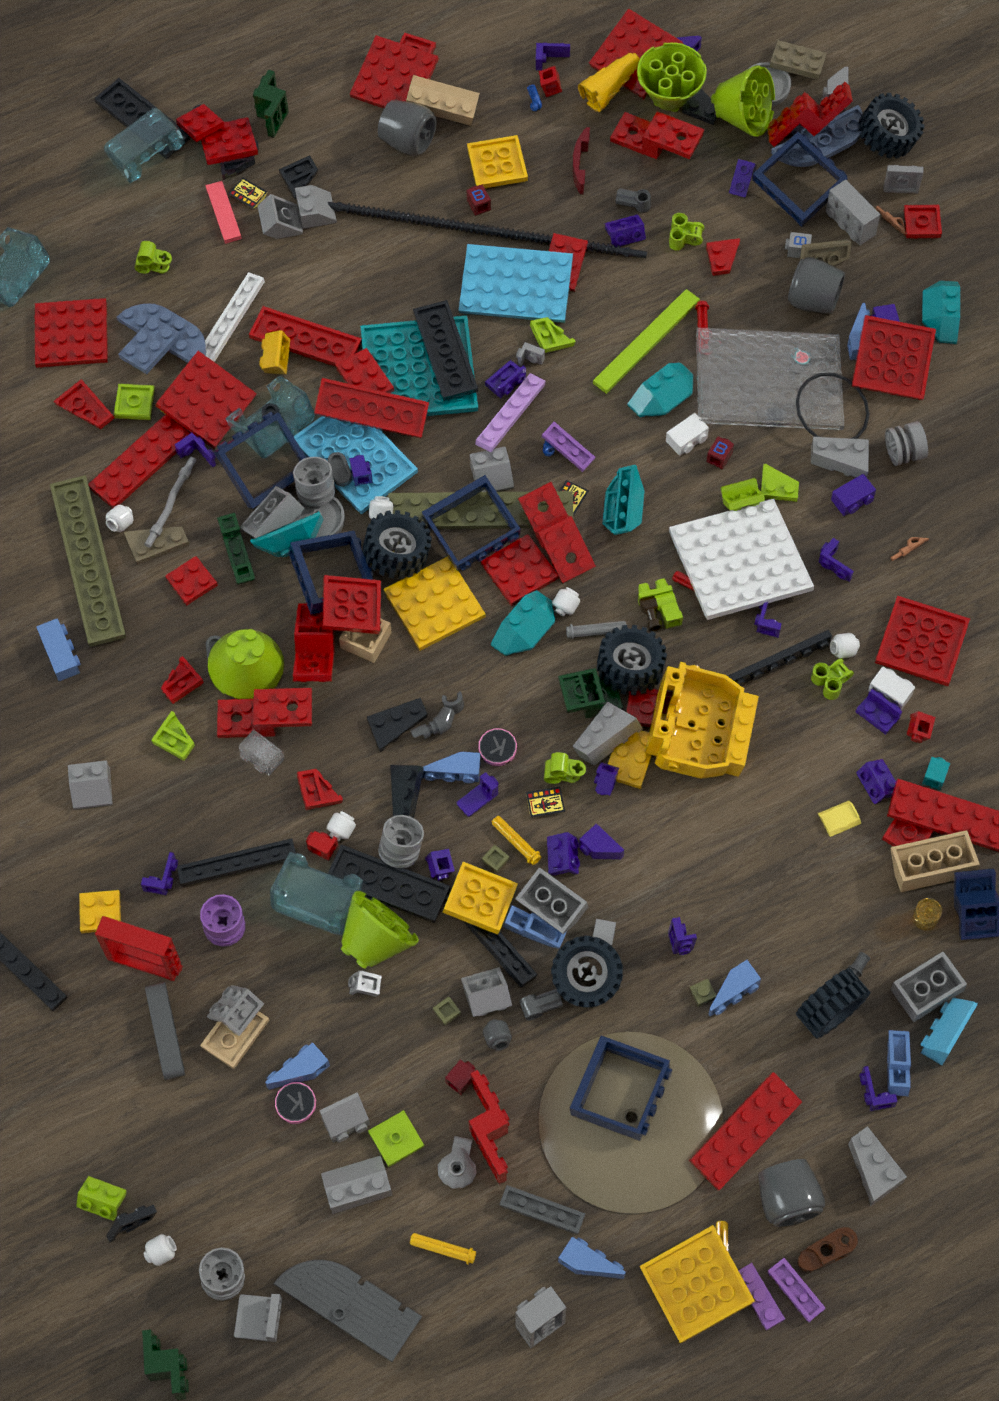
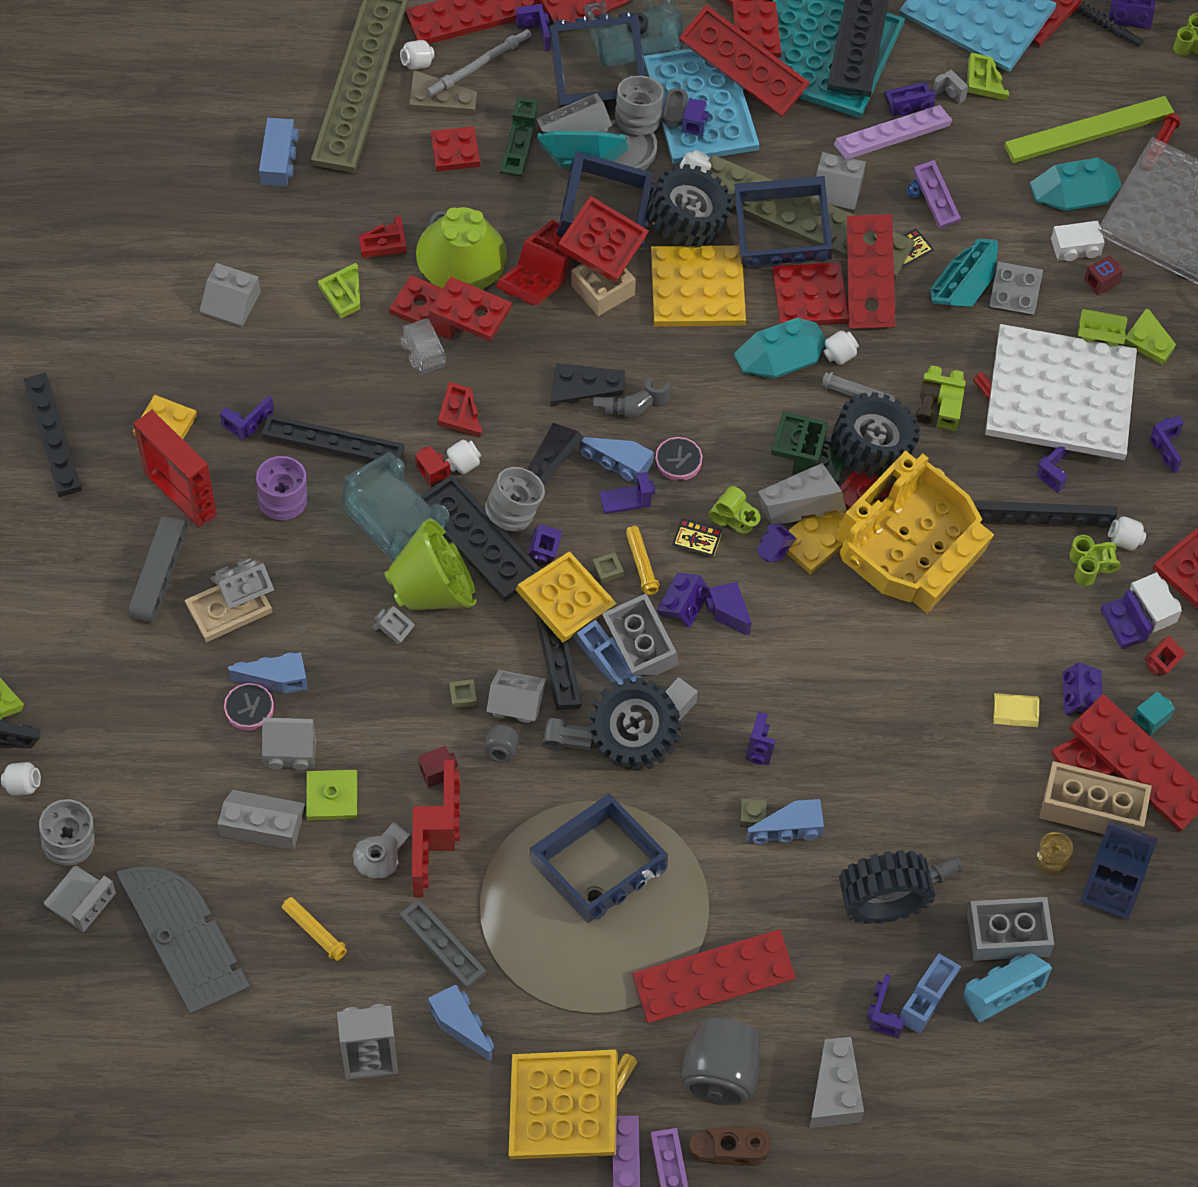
camera: 25 degrees right, 5 degrees down
(664, 492) = (1016, 288): none -> light grey bracket

